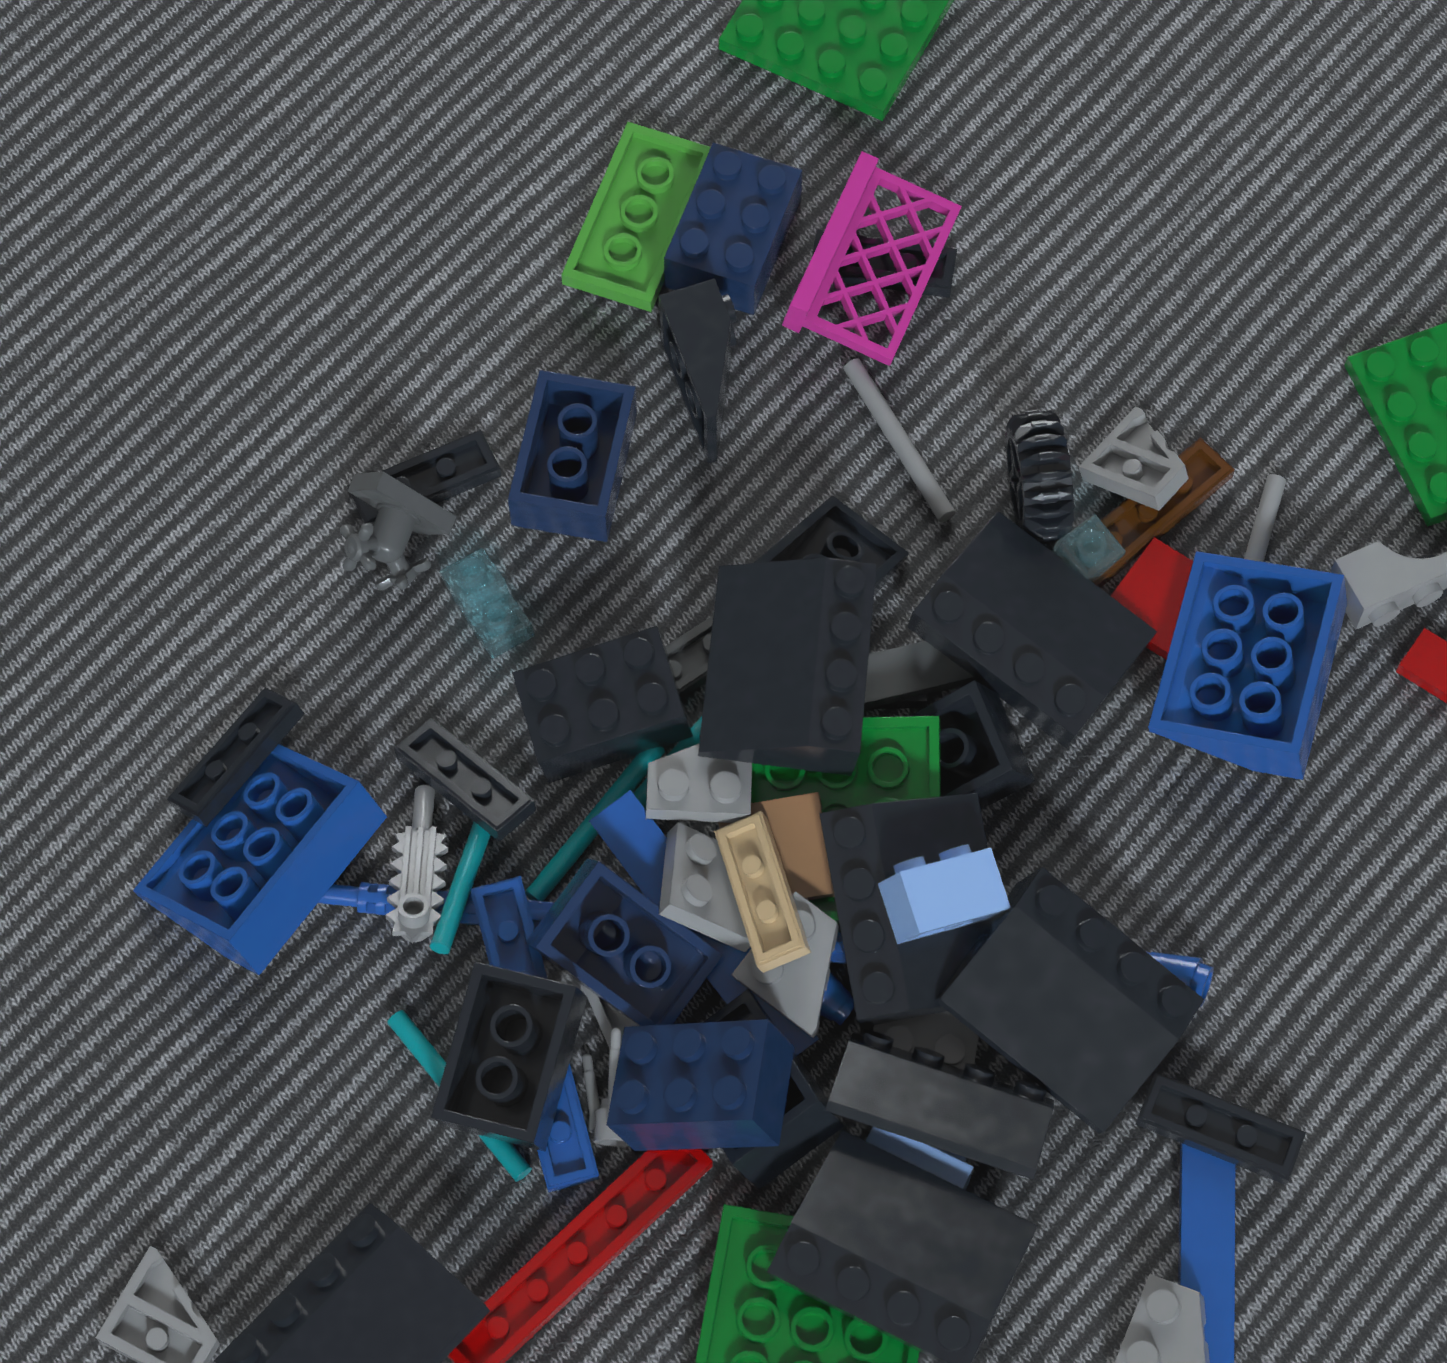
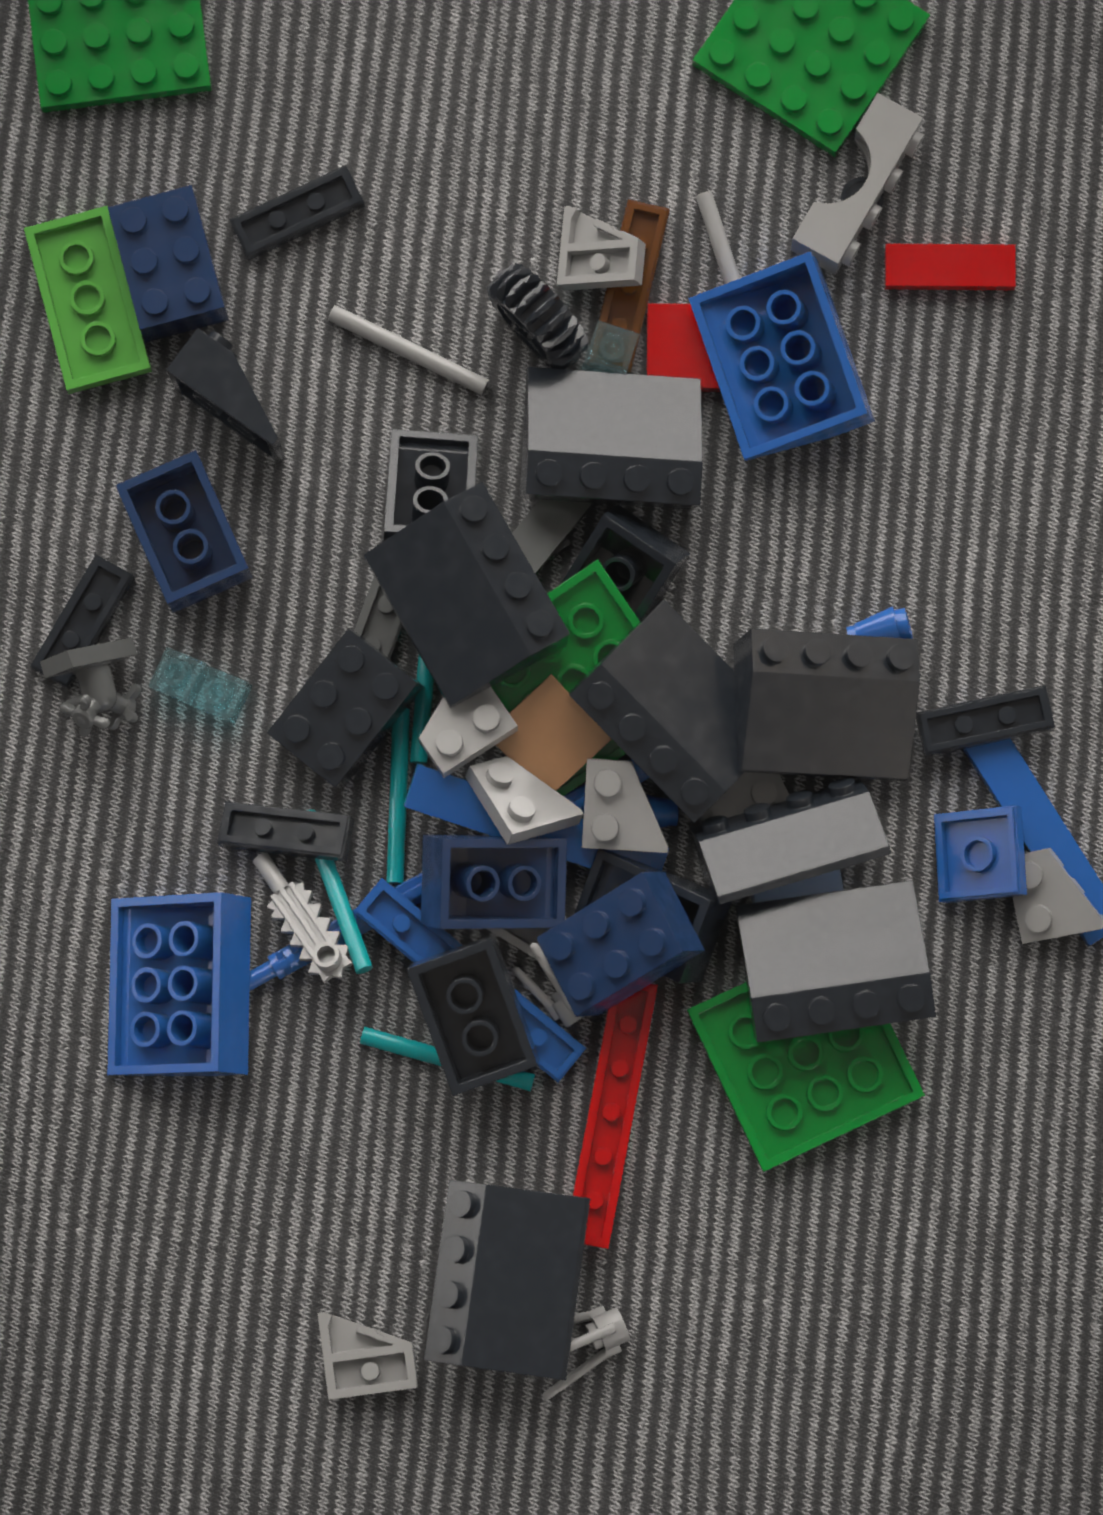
camera: 30 degrees left, 15 degrees up
(235, 756) = (107, 927): black tile -> none
(762, 892) = (564, 776): tan tile -> none
(832, 251) = (256, 228): dark pink fence -> none
(943, 893) = (697, 695): light blue brick -> none
(1126, 1254) = (980, 854): none -> blue tile

